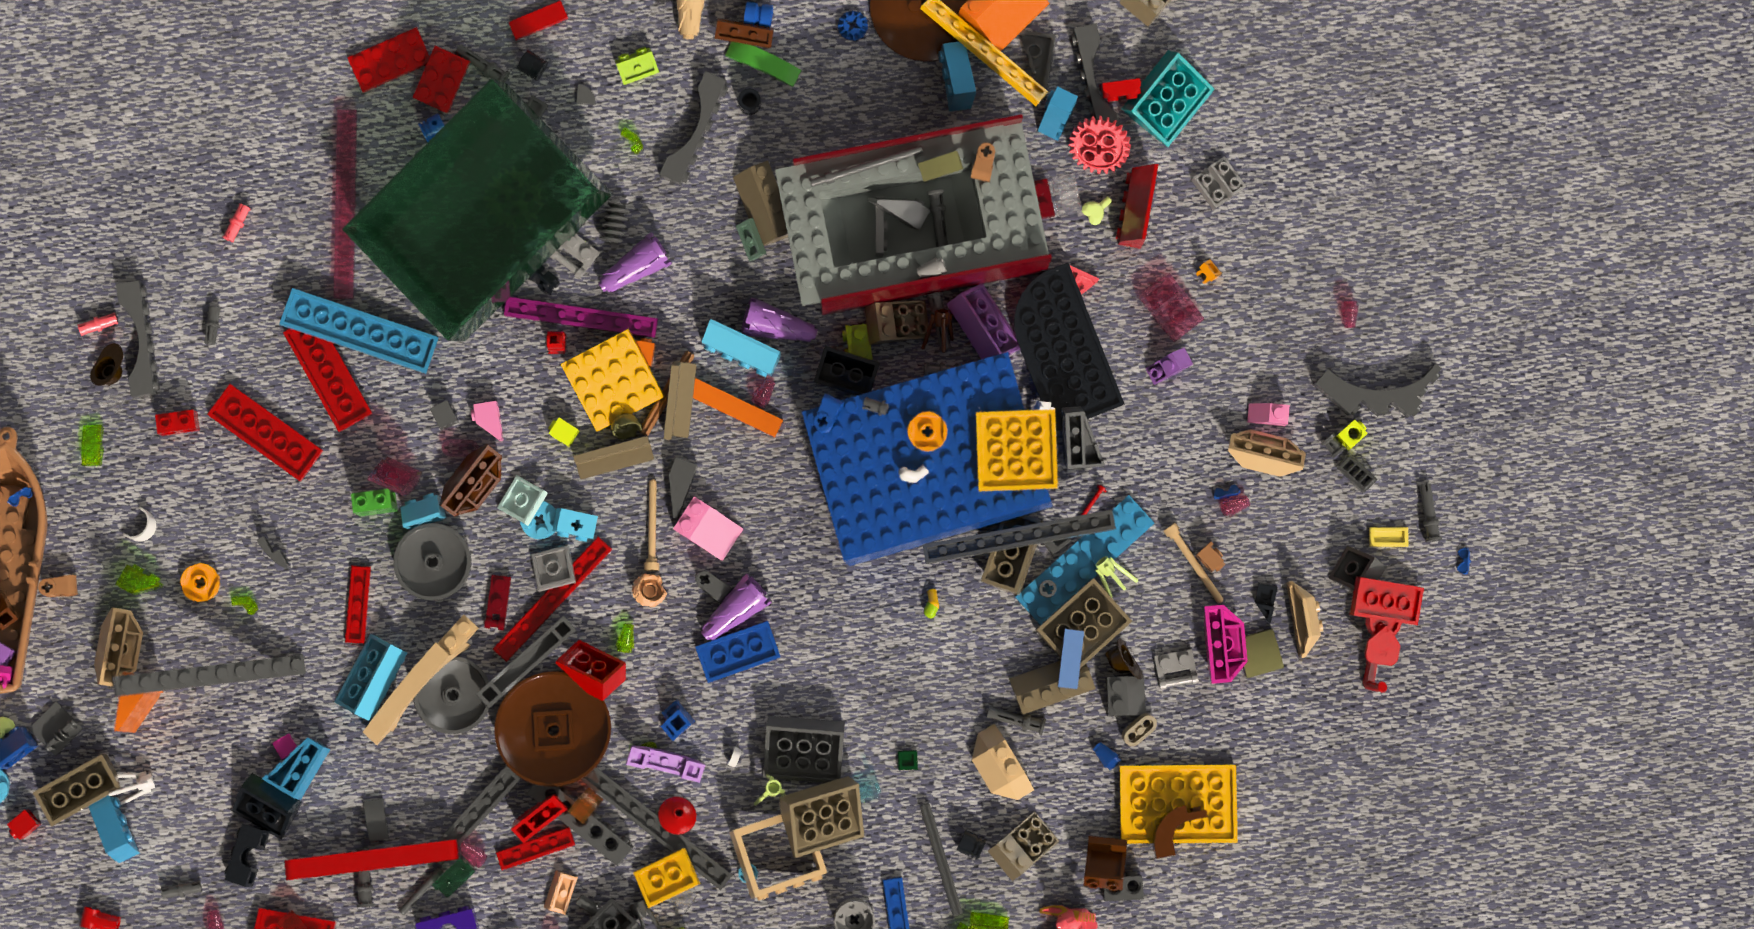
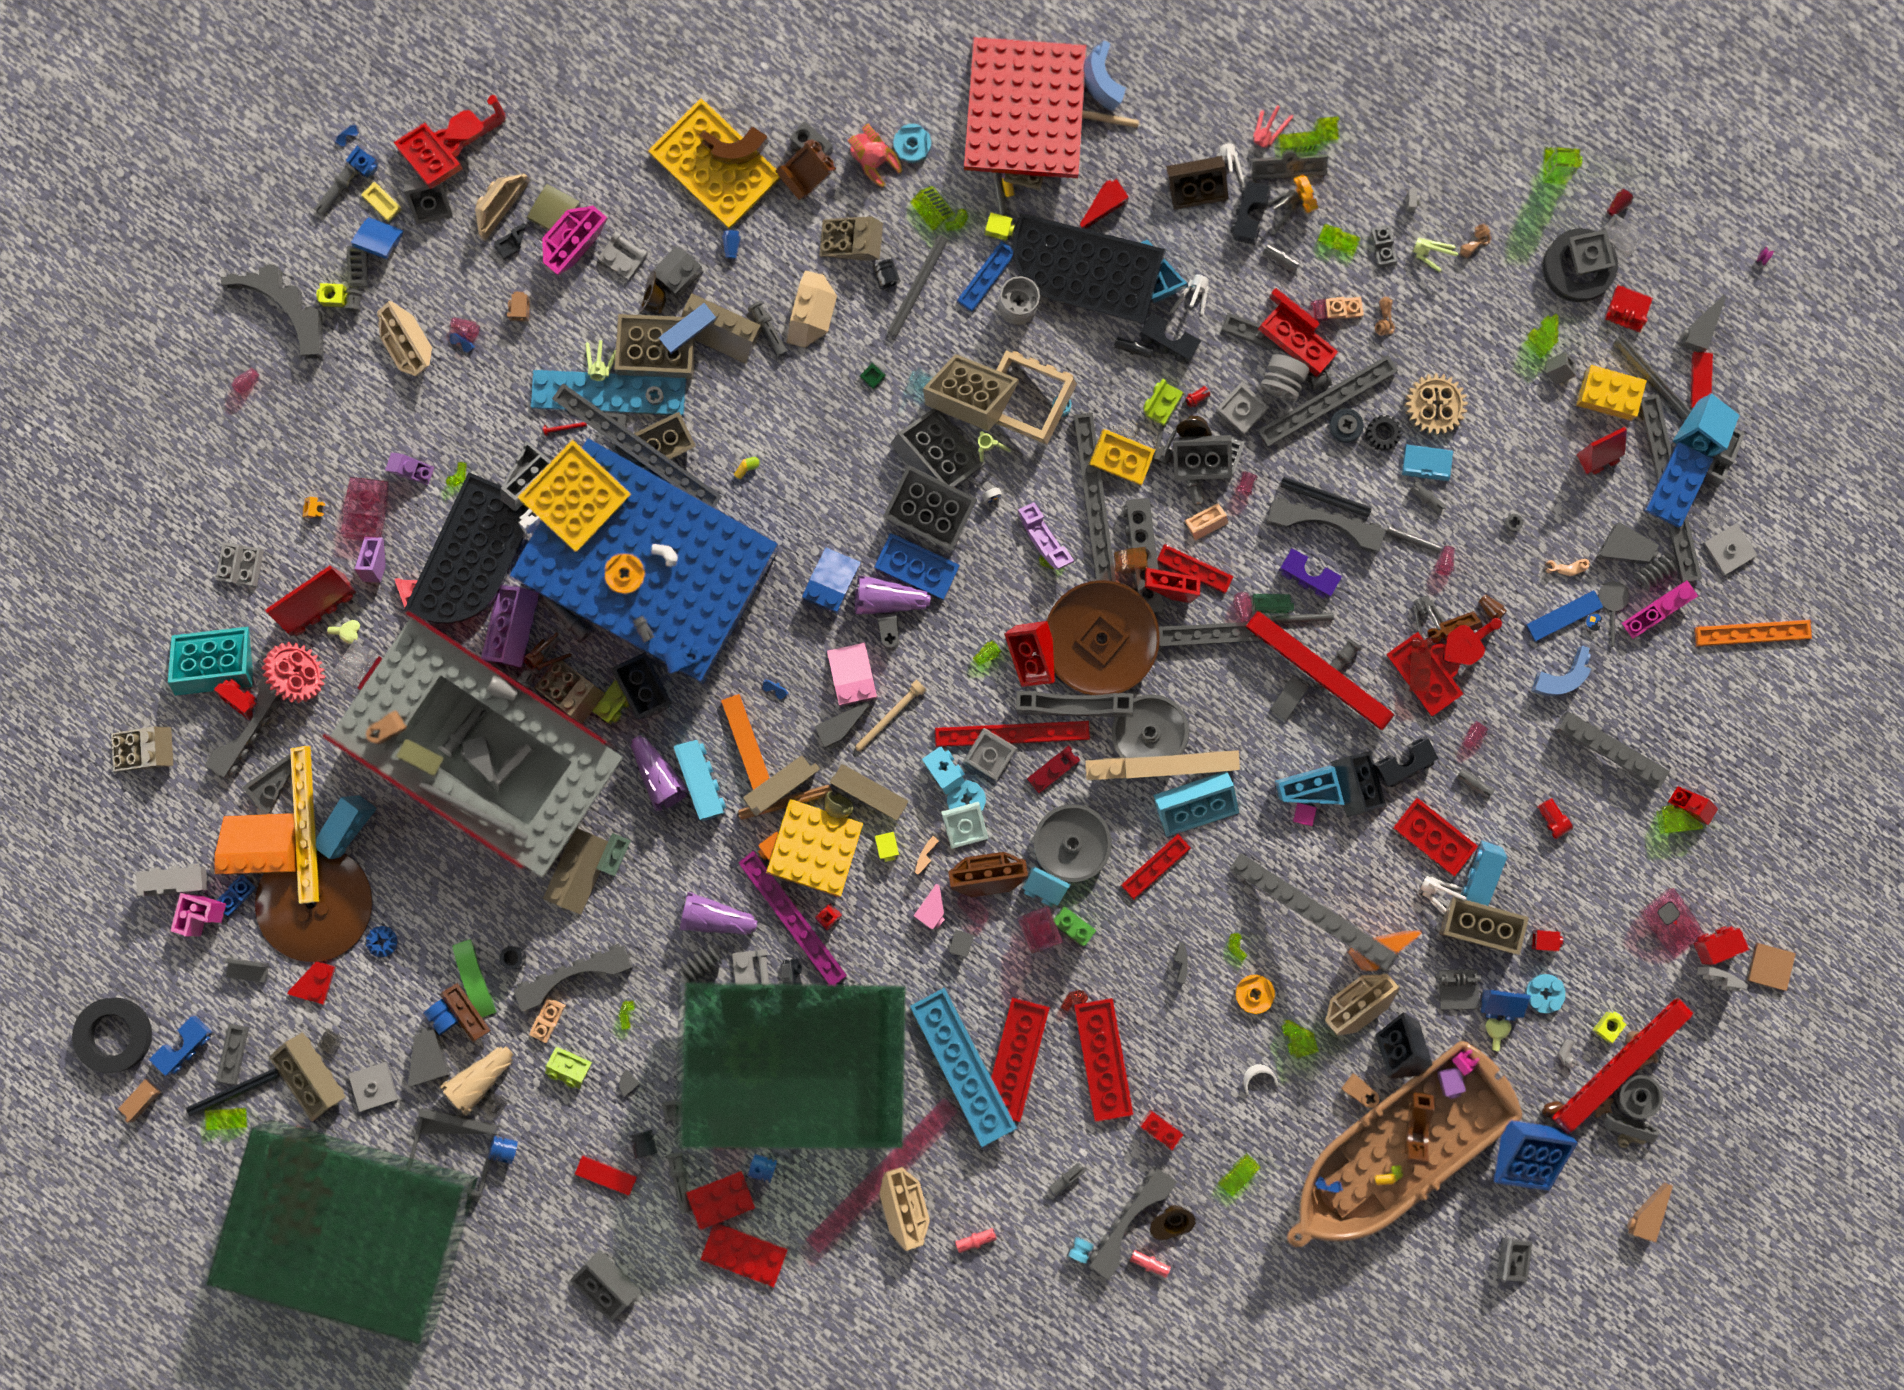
camera: 135 degrees left, 0 degrees up
(55, 644) = (1403, 1048): none -> black slope
(155, 286) = (1080, 1250): none -> medium azure wheel
(174, 821) = (1435, 837): none -> red plate
(306, 196) = (904, 1208): none -> tan wedge
(328, 456) = (1073, 997): none -> clear red arm
(527, 447) = (923, 860): none -> light nougat slope
(648, 590) = (937, 671): light nougat hair -> none
(673, 823) = (1079, 498): red dish -> none
(677, 720) = (1007, 559): blue brick -> none
(683, 84) = (547, 1020): none -> light nougat slope
(747, 467) = (780, 691): none -> blue piece
(763, 393) = (718, 732): clear pink cone -> none
(767, 700) = (930, 508): none -> dark grey slope
(789, 581) = (831, 580): none -> slope
(1058, 111) = (296, 726): dark azure wedge -> none
(1128, 276) = (371, 560): none -> medium lavender slope
(1128, 394) = (459, 477): none -> clear neon green arm
(1139, 730) = (690, 239): dark tan plate -> none
(1173, 532) = (527, 350): tan piece -> none
(1268, 414) = (375, 366): bright pink slope -> none
(1363, 507) = (377, 237): none -> slope
(1422, 554) = (367, 168): none -> blue brick

